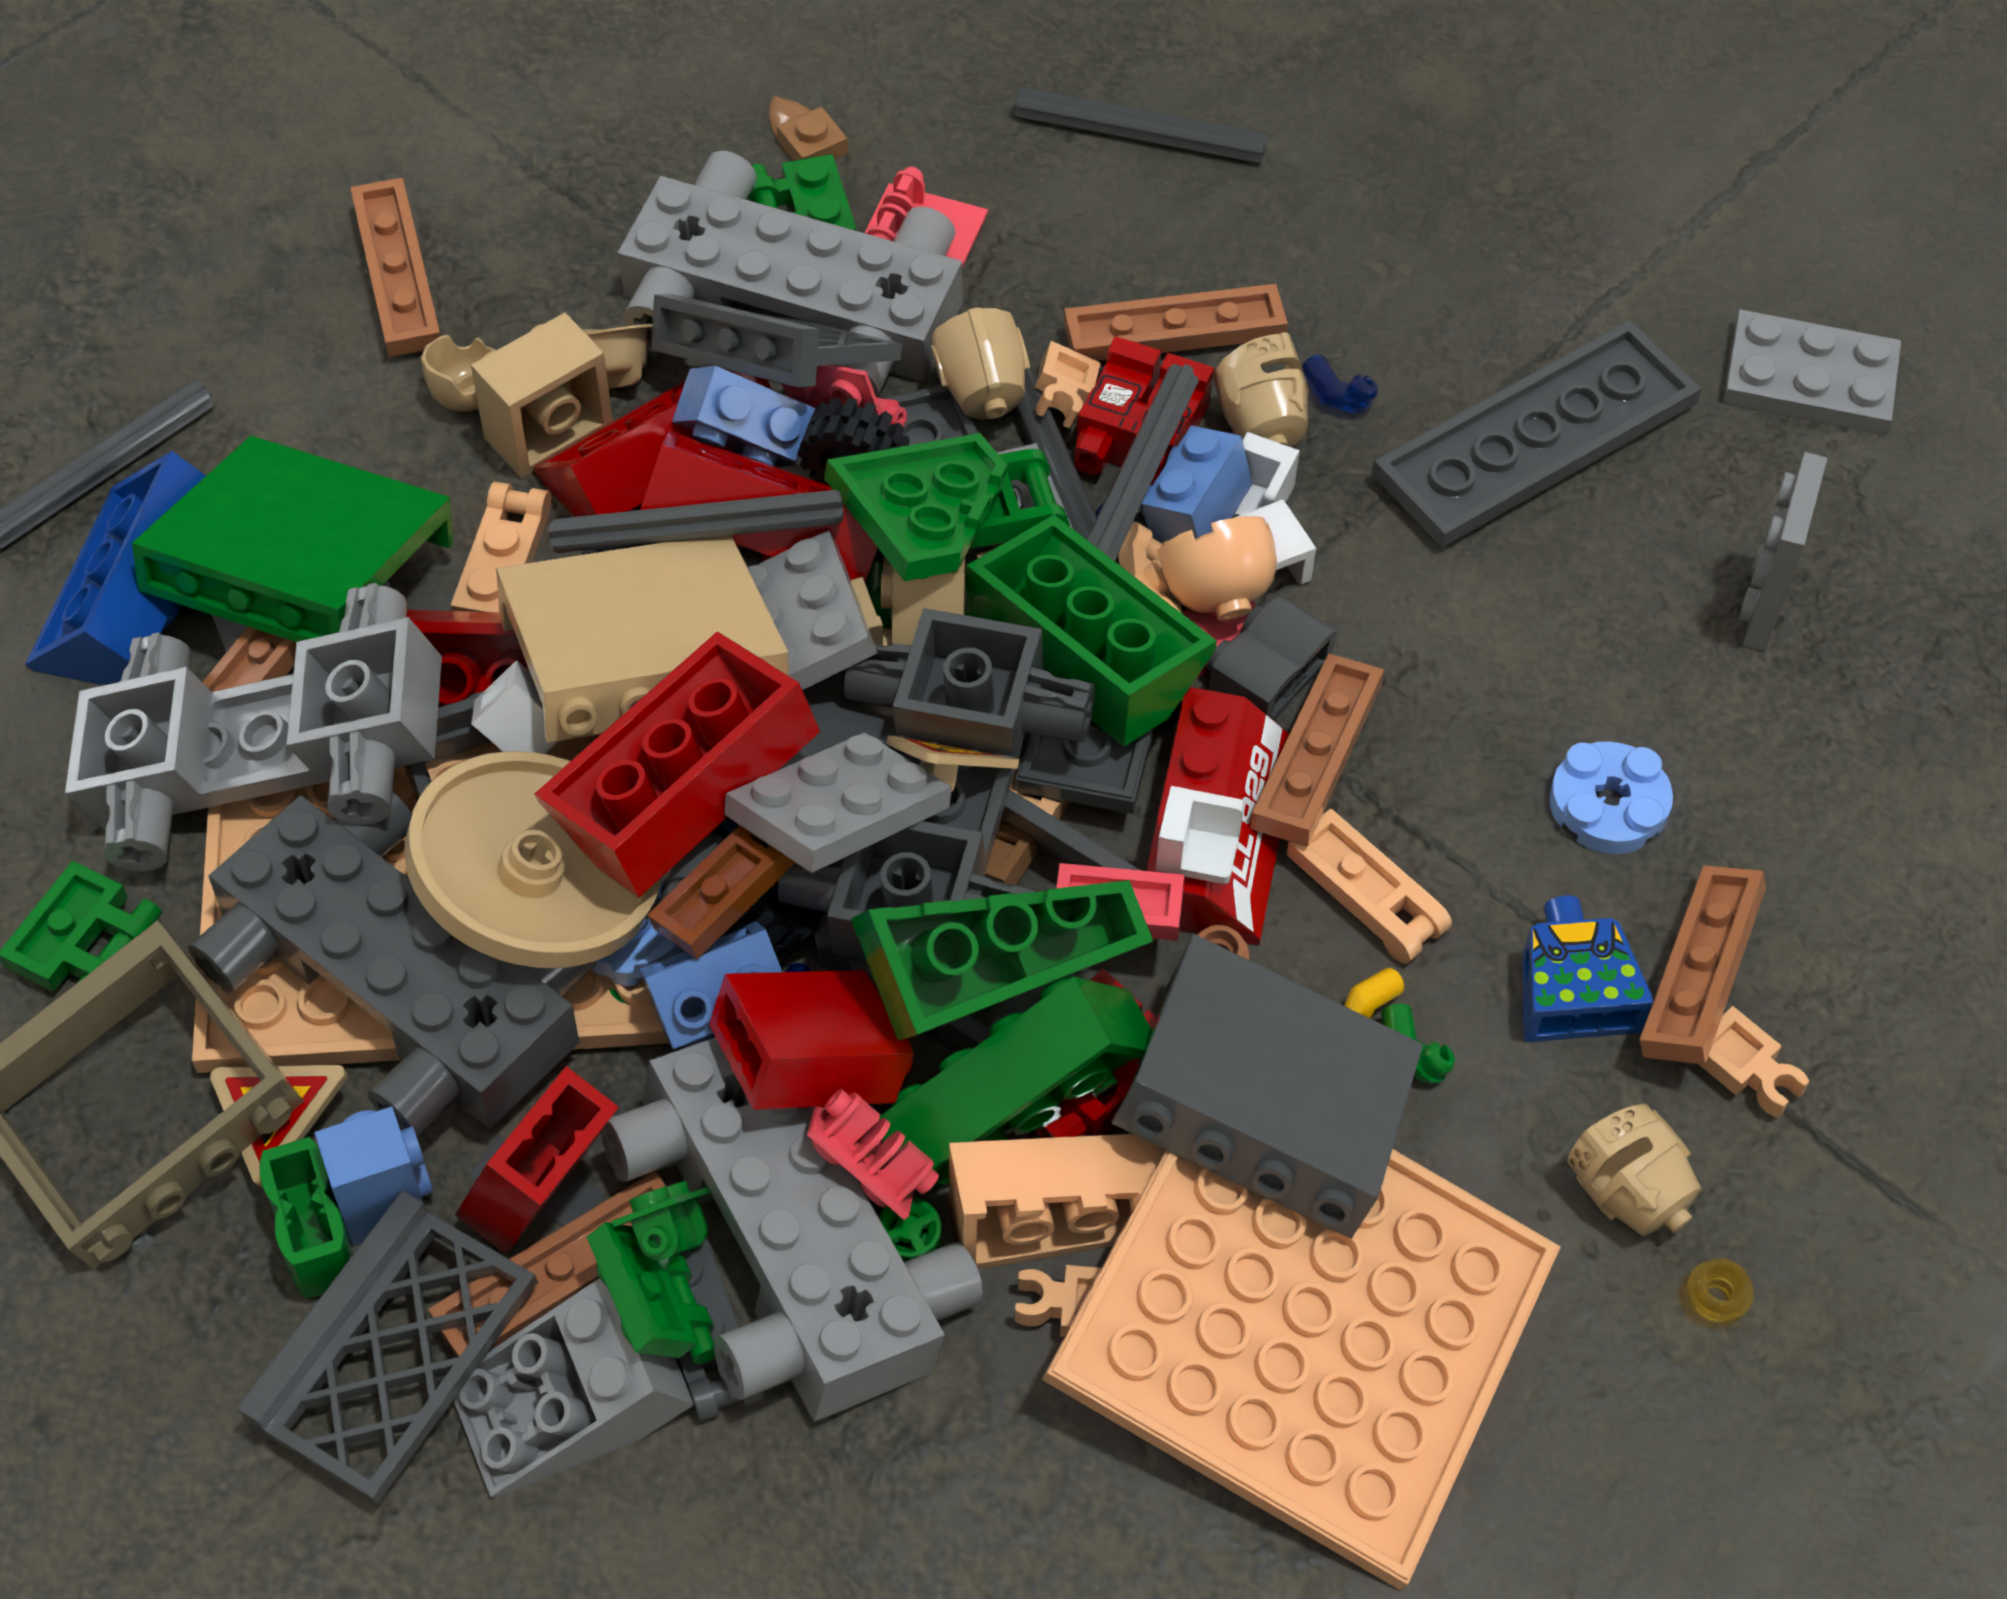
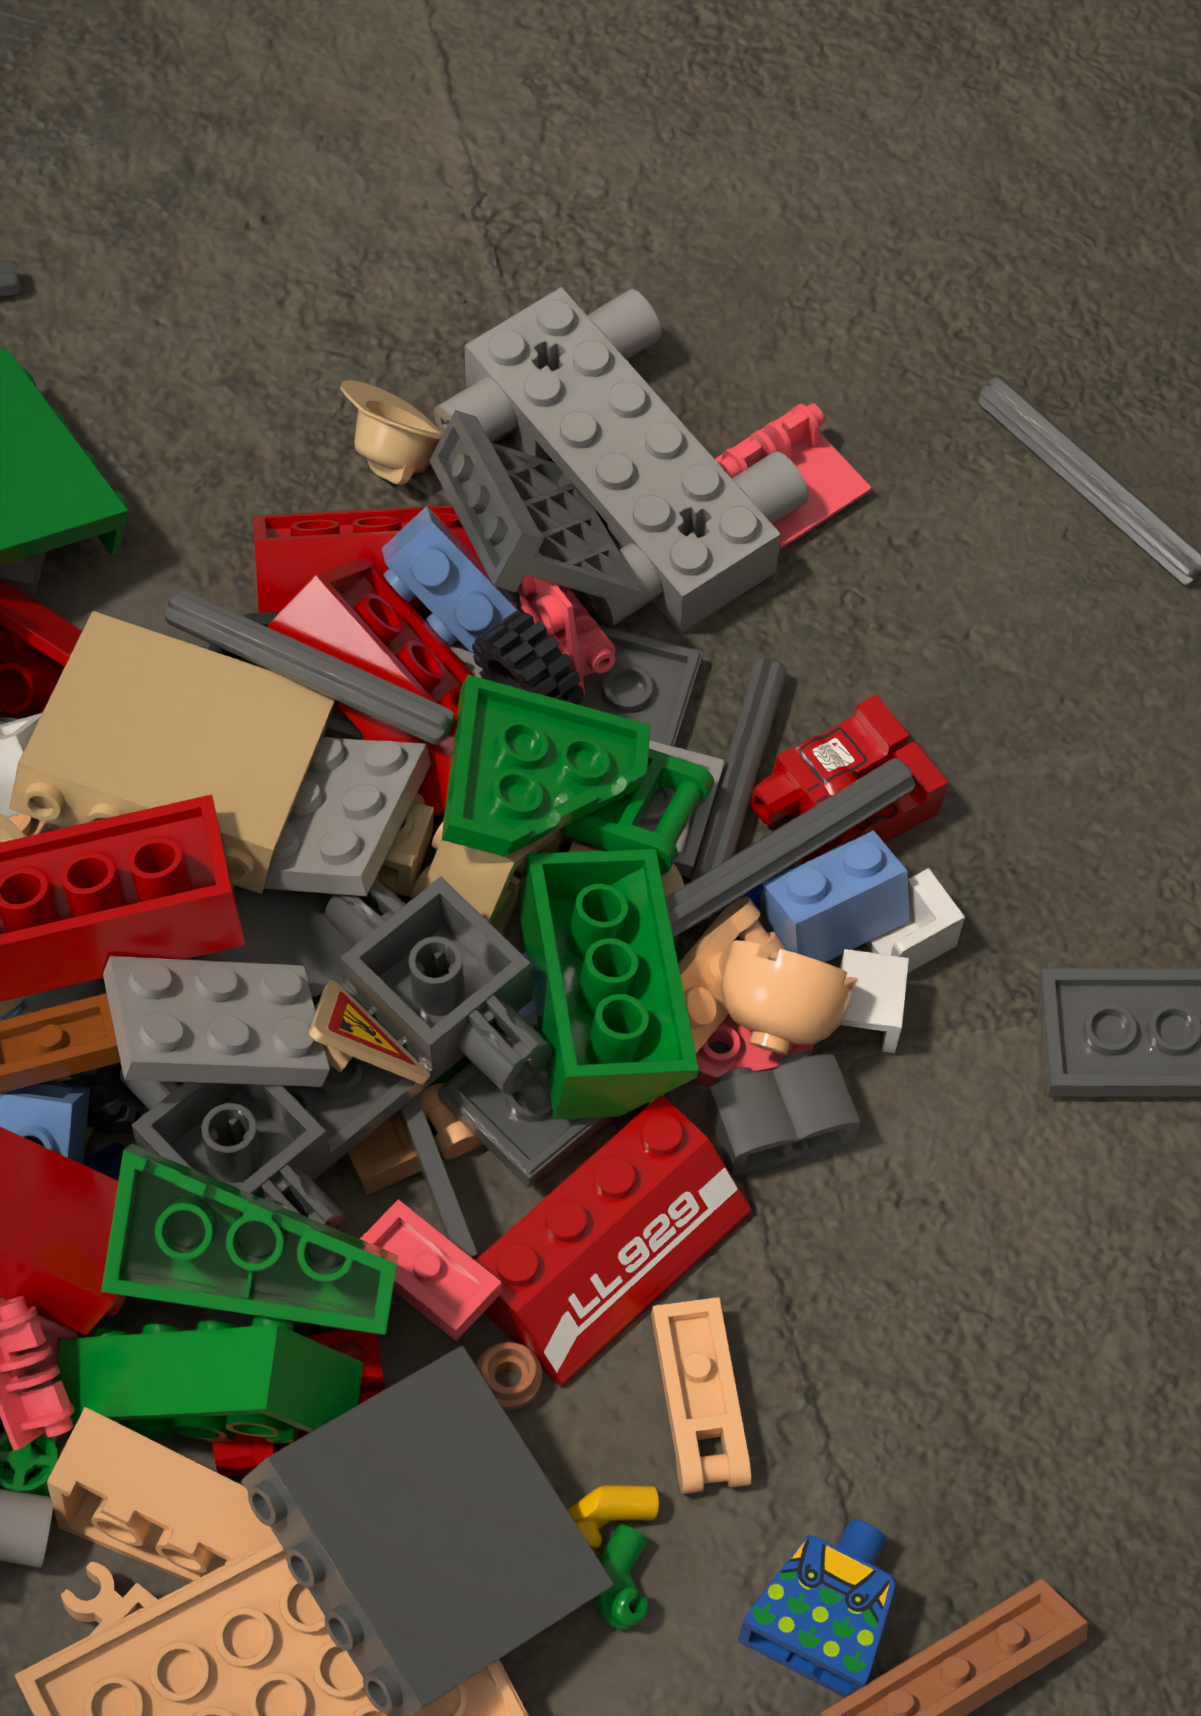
camera: 30 degrees right, 5 degrees up
(395, 266) = (271, 244): nougat plate -> none
(450, 373) = (250, 388): tan hair -> none
(501, 544) = (146, 589): light nougat plate -> none
(542, 393) = (294, 450): tan brick -> none
(805, 131) = (758, 309): medium nougat plate -> none
(809, 186) = (715, 383): green plate -> none
(982, 361) = (725, 650): tan helmet -> none
(1065, 381) = (802, 710): light nougat plate -> none
(1178, 321) = (963, 711): nougat plate -> none
(1199, 835) = (539, 1253): white panel -> none
(1264, 402) = (978, 857): tan helmet -> none
(1317, 750) = (751, 1230): nougat plate -> none
(1332, 392) = (1066, 873): clear blue arm -> none
(1618, 767) = (1019, 1489): light blue plate -> none

